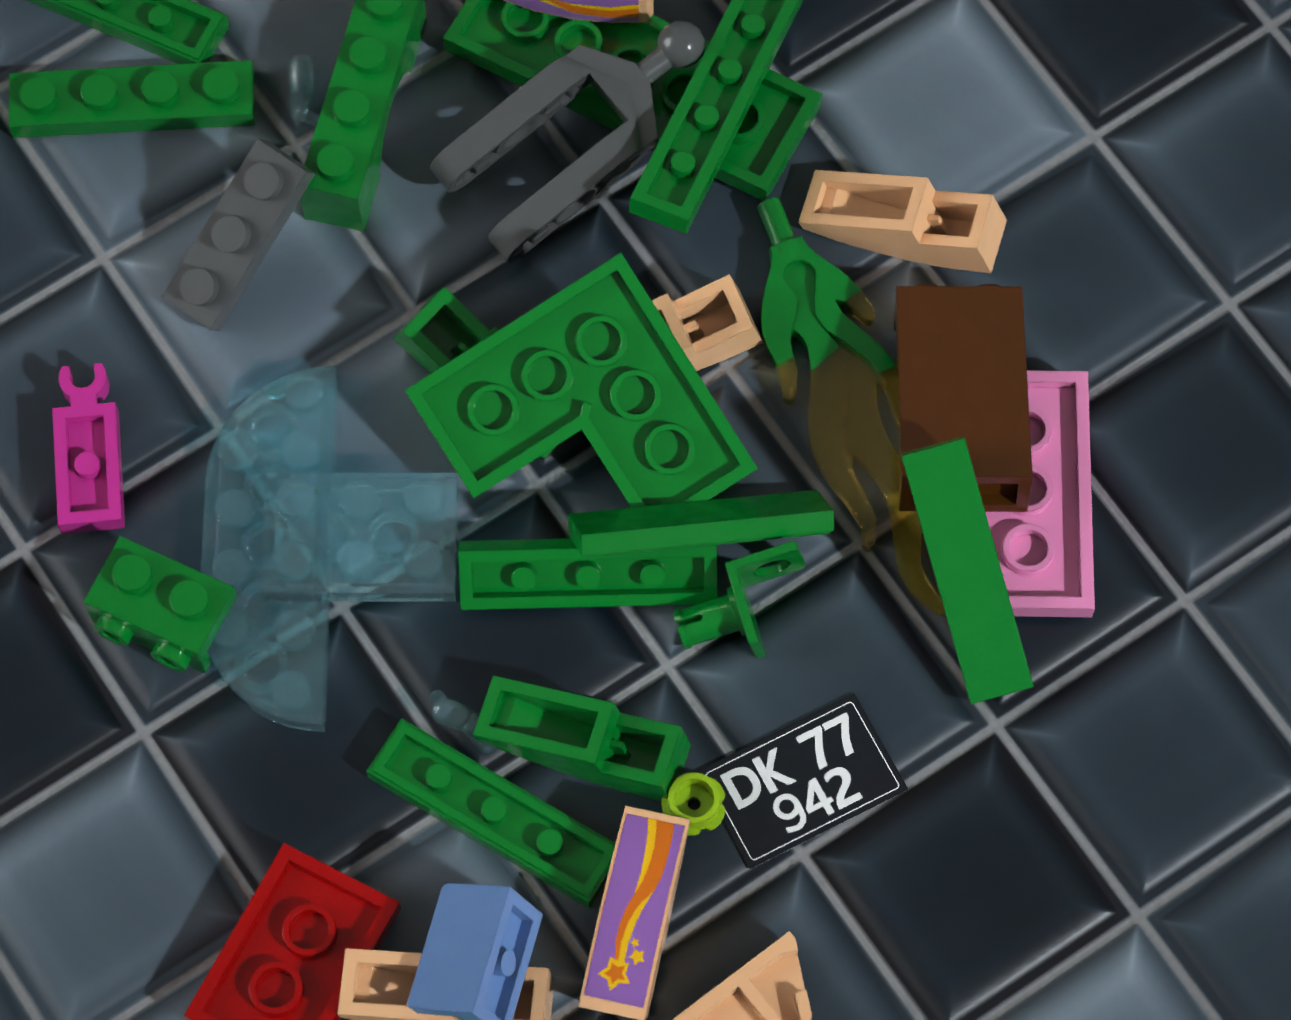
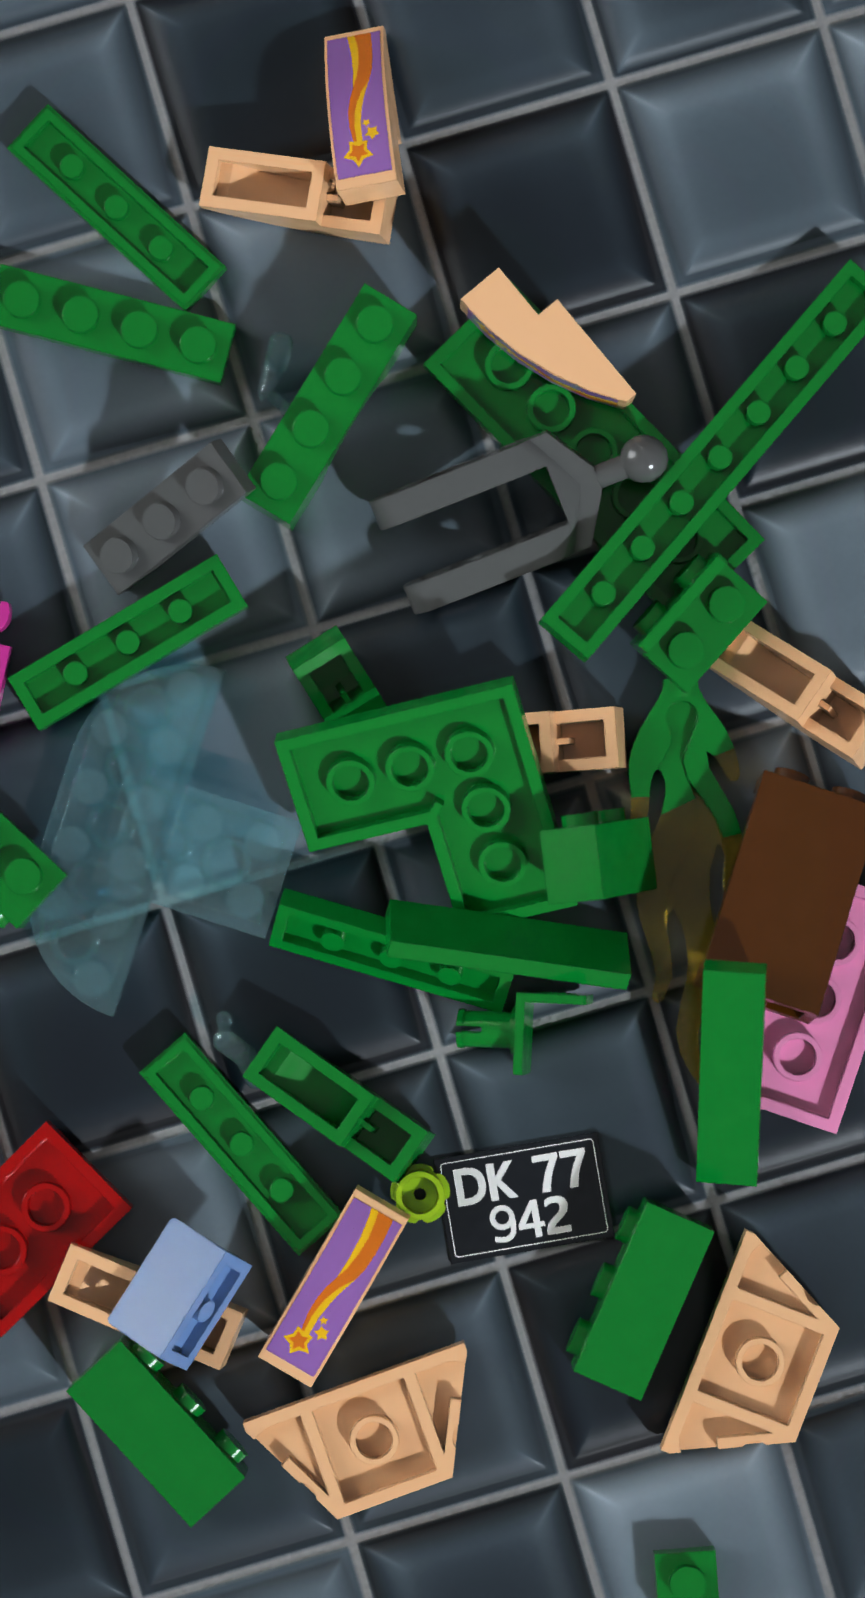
camera: 10 degrees right, 20 degrees up
(232, 369) = (128, 642): none -> green plate
(762, 410) = (597, 857): none -> green brick
(783, 176) = (696, 620): none -> green bracket
(954, 830) = (639, 1297): none -> green brick
(1094, 859) = (754, 1359): none -> light nougat wing

